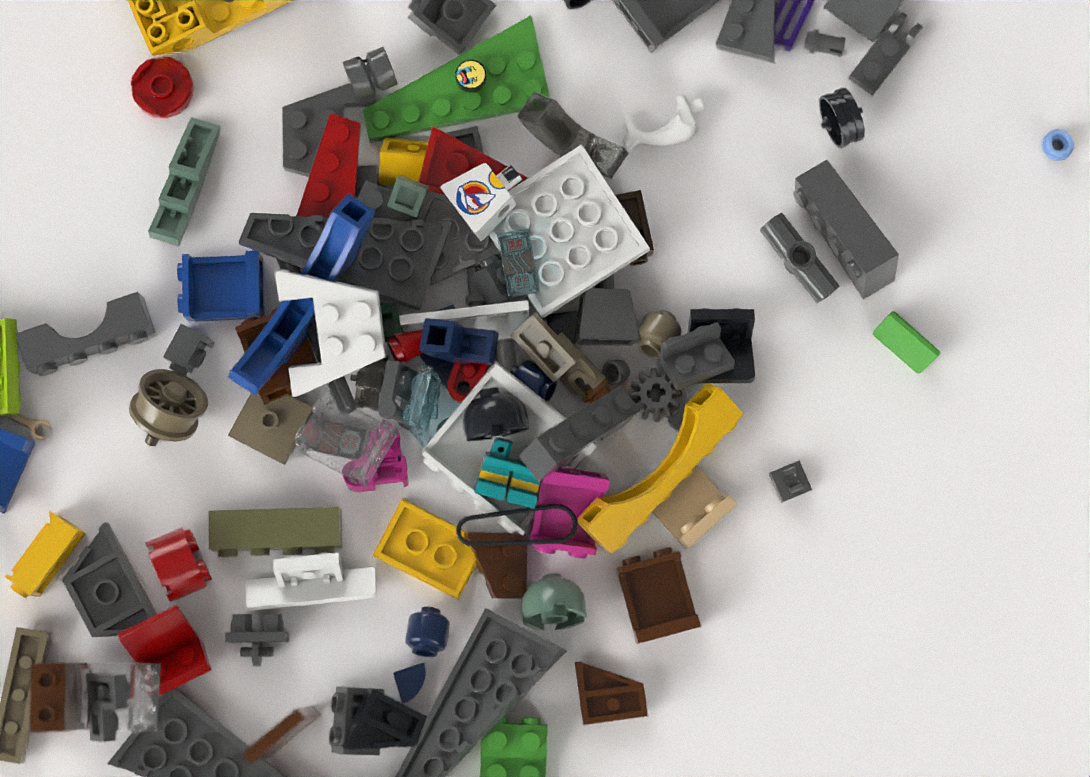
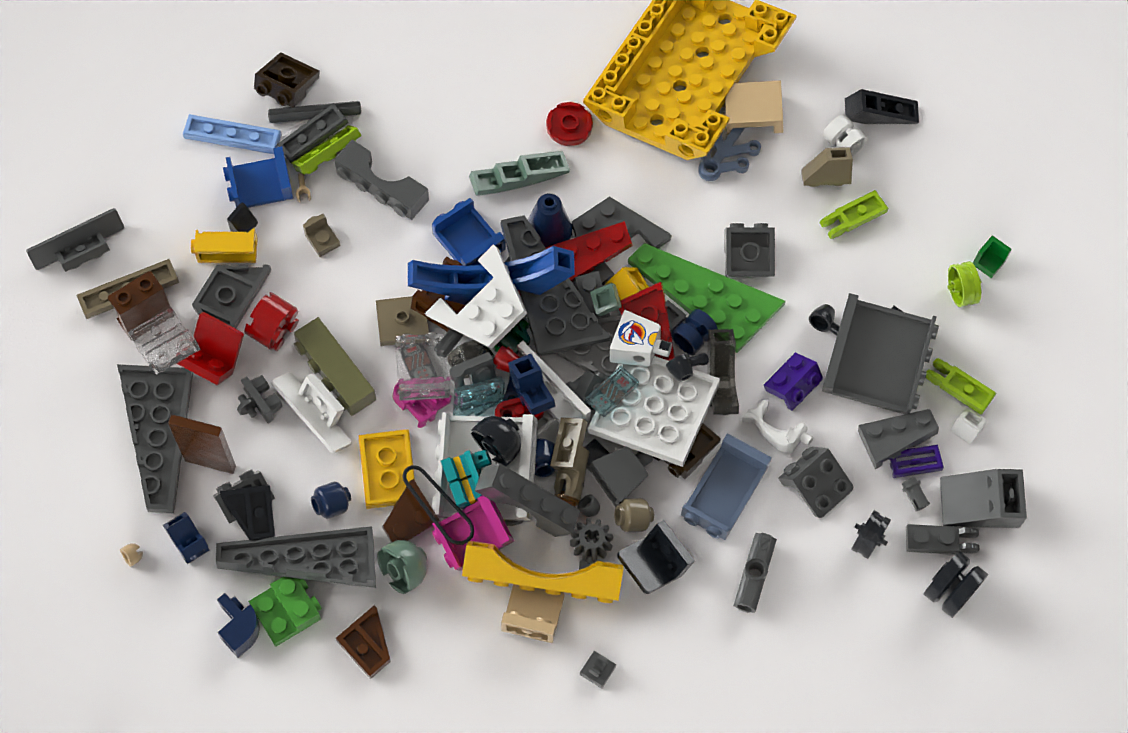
camera: 55 degrees right, 15 degrees down
(26, 517) = (241, 219): none -> black slope
(104, 695) = (160, 329): dark grey plate -> none
(105, 443) = (320, 235): none -> dark tan bracket
(167, 406) = (368, 250): dark tan wheel -> none
(187, 350) = (412, 241): dark grey brick -> none
(271, 190) = (550, 220): none -> dark blue cone
(370, 73) = (670, 229): dark grey wheel -> none
(410, 681) = (291, 512): dark blue tile -> none
(470, 76) = (715, 288): tile -> none
(503, 136) = (693, 333): none -> dark blue wheel
(545, 173) = (682, 365): none -> black bar
(623, 70) = (794, 380): none -> dark purple bracket
(657, 595) = (456, 631): reddish brown panel -> none
(690, 222) = (726, 487): none -> sand blue panel
(695, 356) = (634, 543): dark grey bracket -> none
(744, 126) = (818, 480): none -> dark grey bracket
(847, 229) = (797, 589): dark grey wedge -> none
(906, 342) = (751, 683): bright green slope -> none
(948, 75) = (957, 585): none -> black wheel
(1063, 139) = (974, 690): light blue plate -> none

